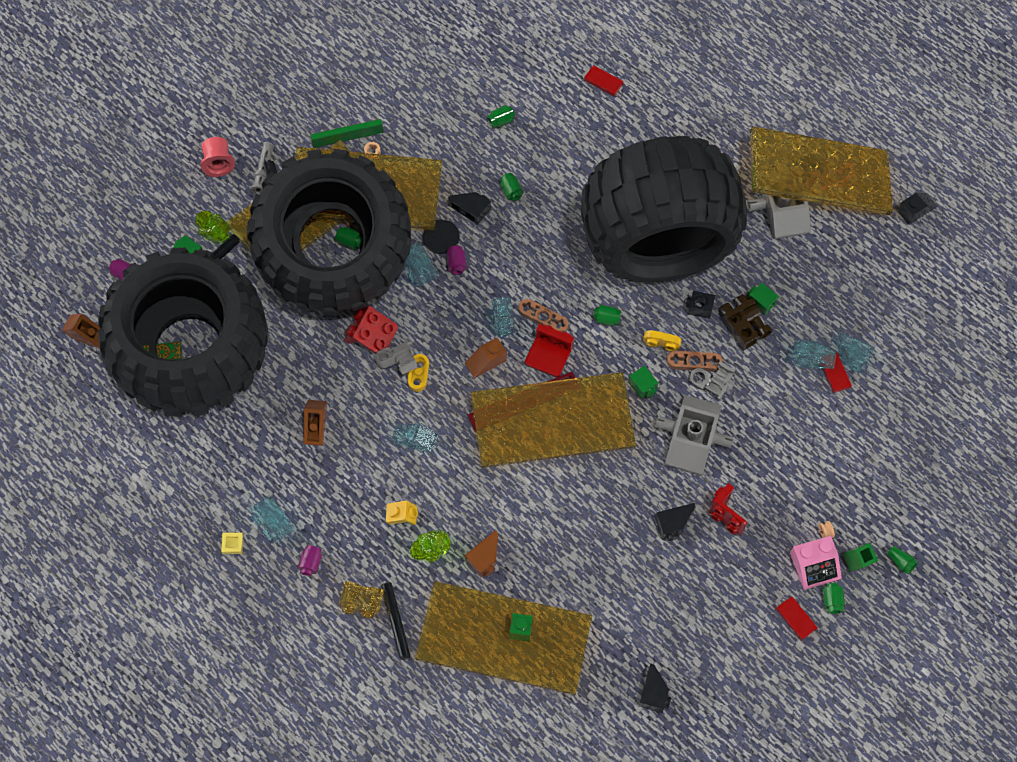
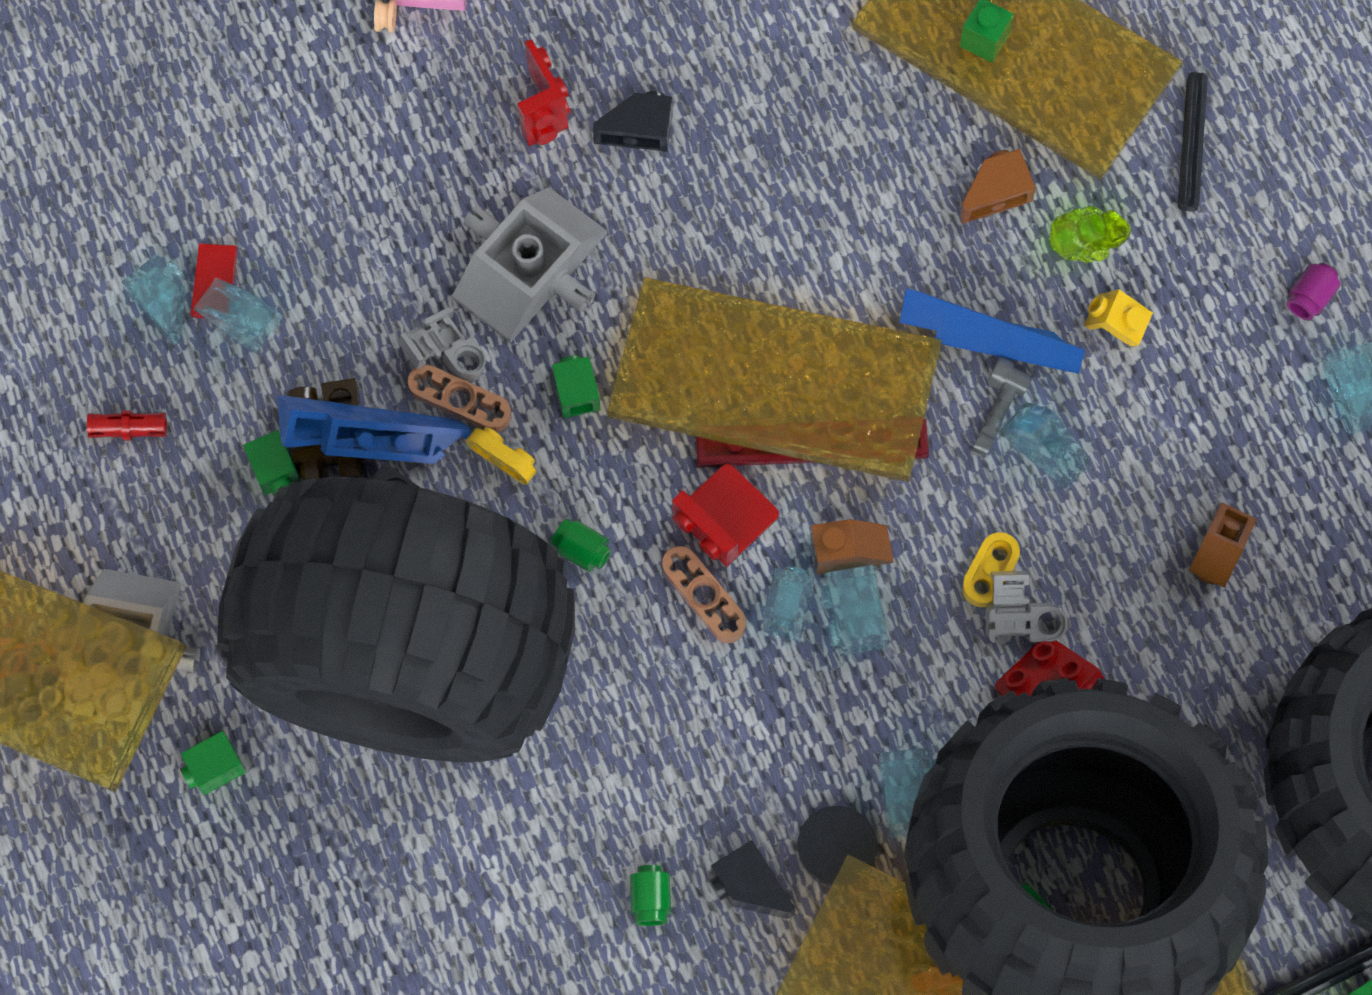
camera: 155 degrees left, 5 degrees up
(361, 599) = (1240, 190): clear yellow cylinder -> none
(442, 462) = (1009, 382): none -> dark grey brick
(456, 260) = (828, 774): magenta brick -> none
(462, 479) = (988, 335): none -> blue wedge
(471, 329) = (855, 611): none -> clear light blue brick
(726, 321) = (366, 431): none -> blue wedge
(846, 288) = (127, 425): none -> red pin

